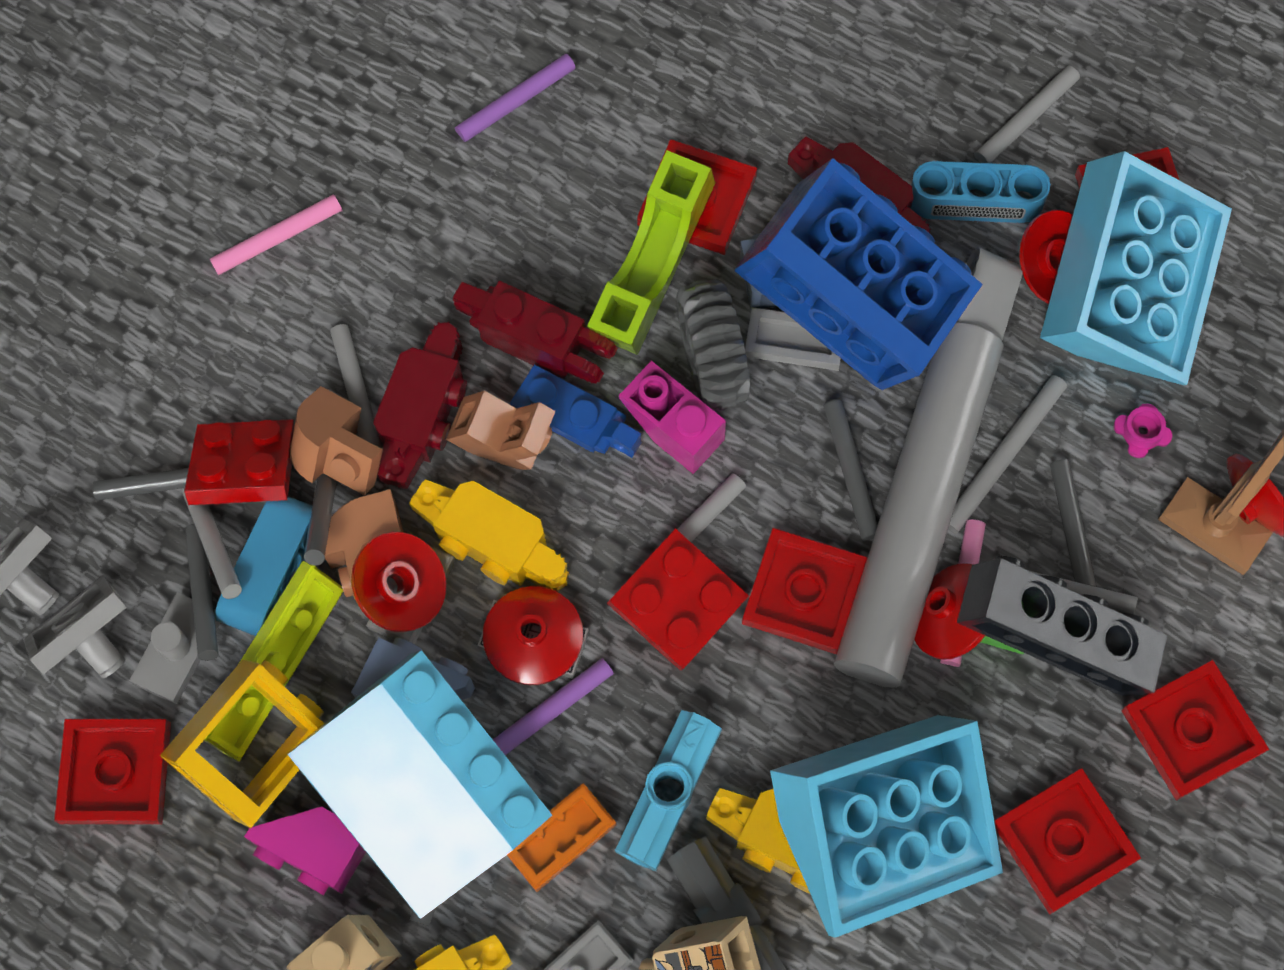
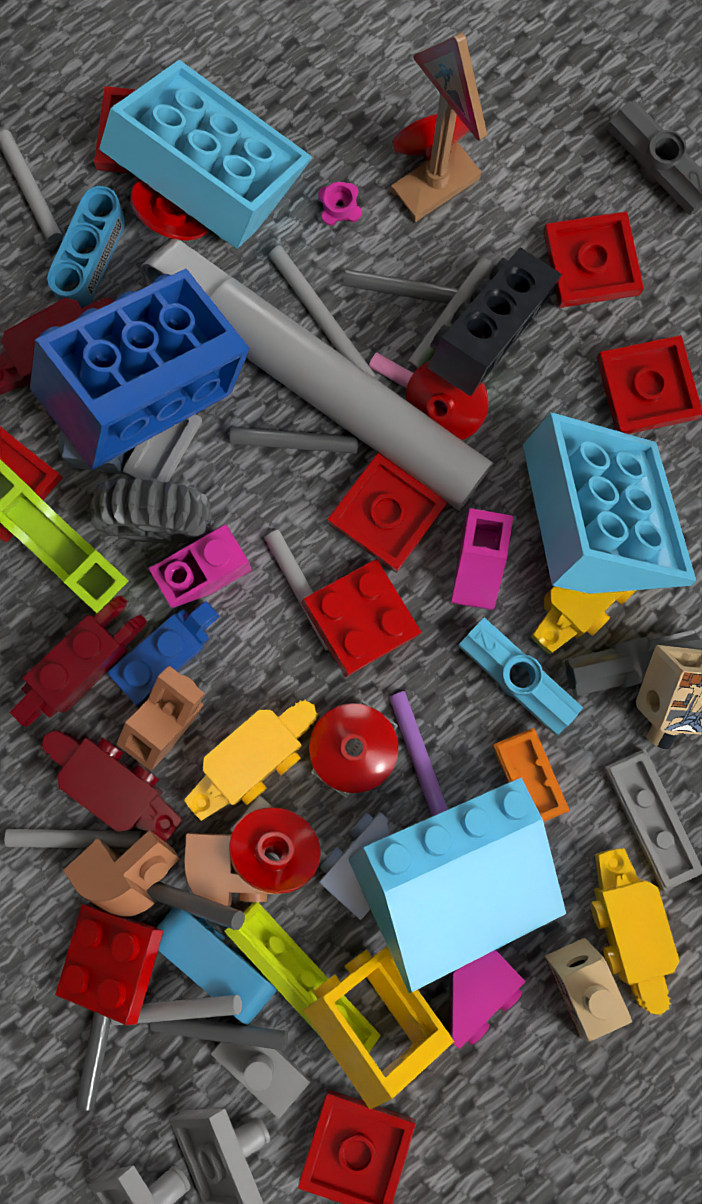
camera: 80 degrees left, 10 degrees up
(785, 704) = (481, 558): none -> dark pink slope

